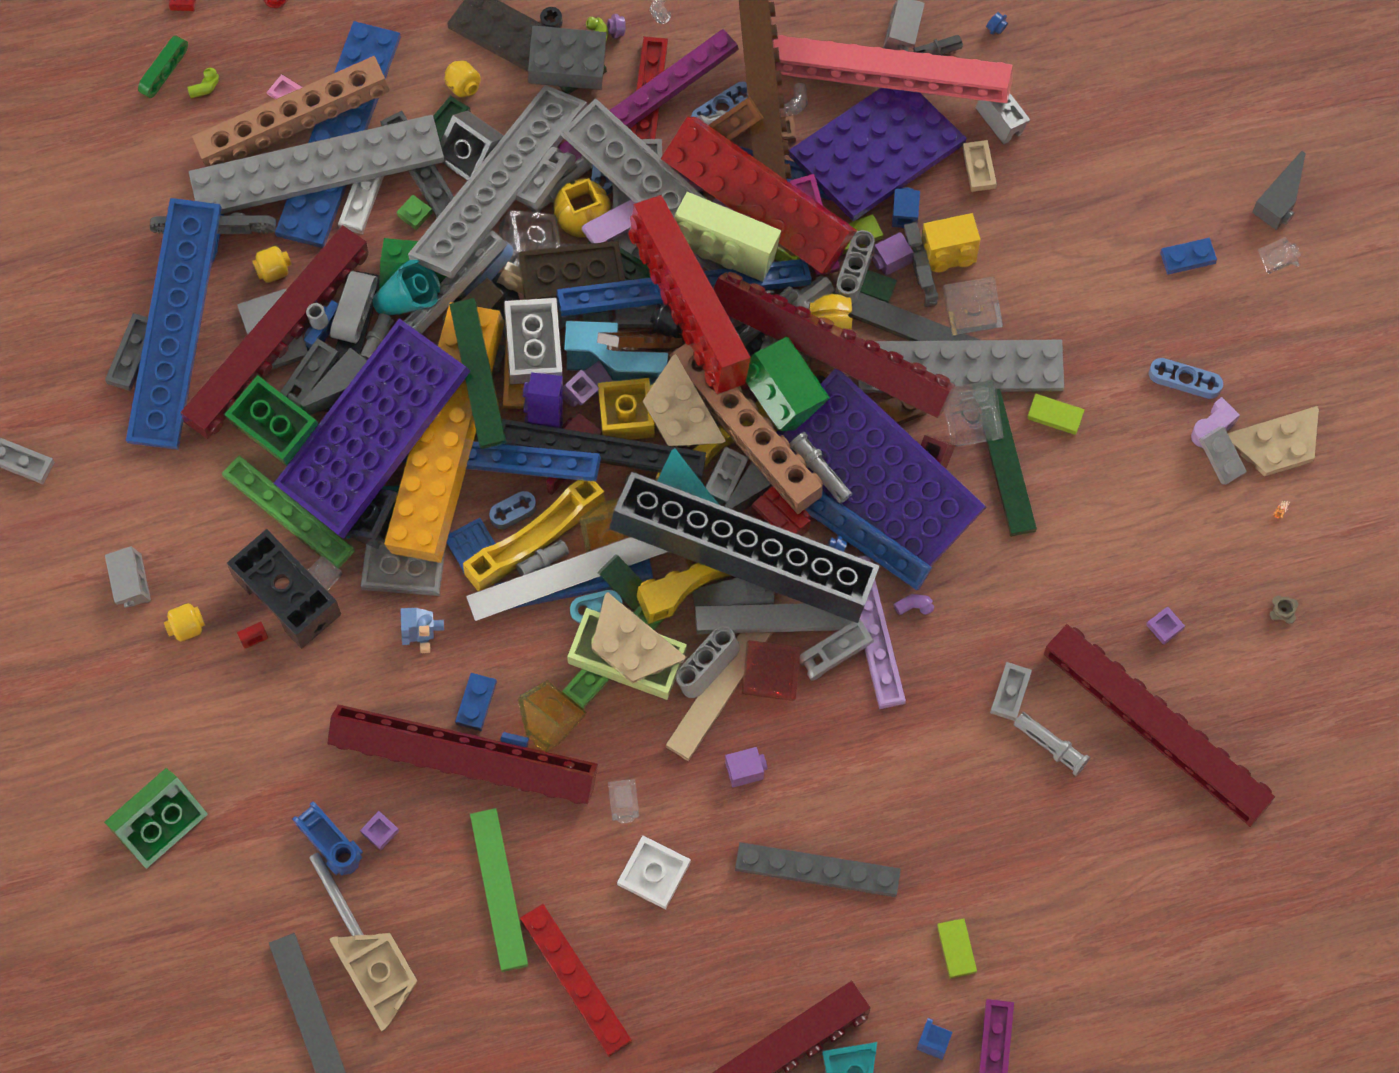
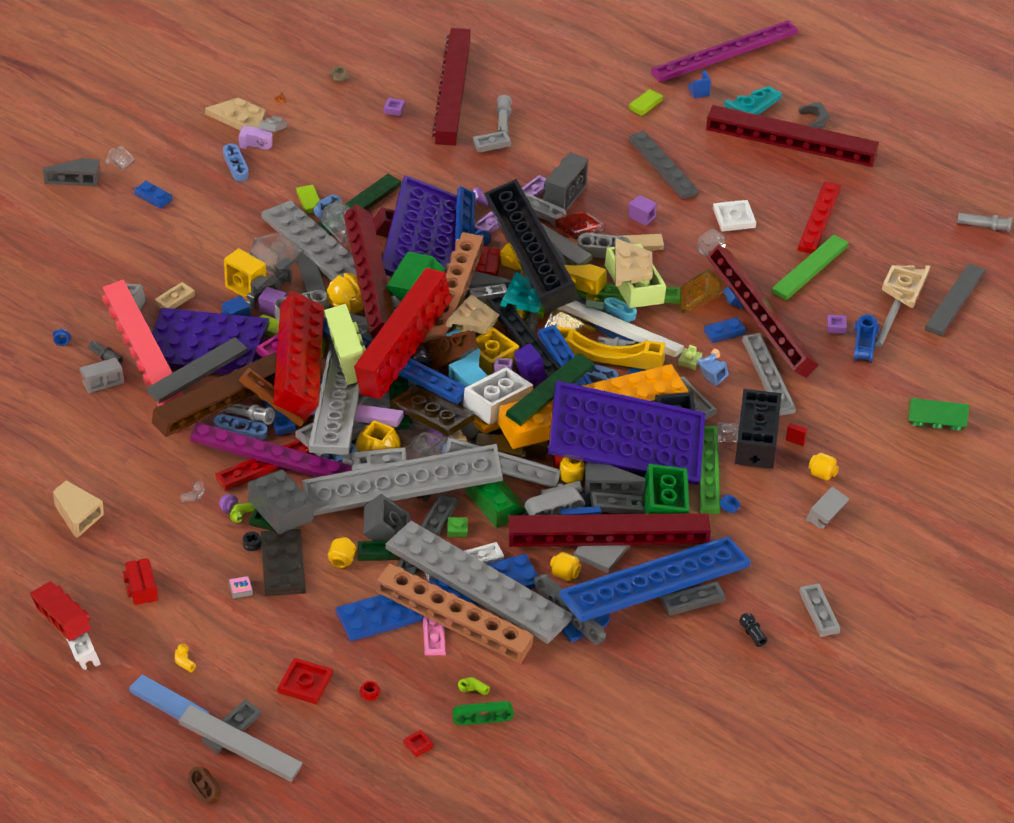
camera: 130 degrees left, 25 degrees down
(60, 379) = (753, 629): none -> black pin
(219, 488) = (730, 503): none -> blue tile
(317, 316) = (582, 505): light grey hinge -> none
(368, 690) = (768, 371): none -> light grey tile
(408, 290) = (523, 476): teal cone -> none
(461, 625) = (689, 358): none -> yellowish green tile
(815, 462) = (444, 257): light grey pin -> none
(816, 89) = (196, 370): none -> dark grey tile
(850, 701) = (567, 181): none -> dark grey brick
(1025, 415) = (323, 203): none -> medium blue beam

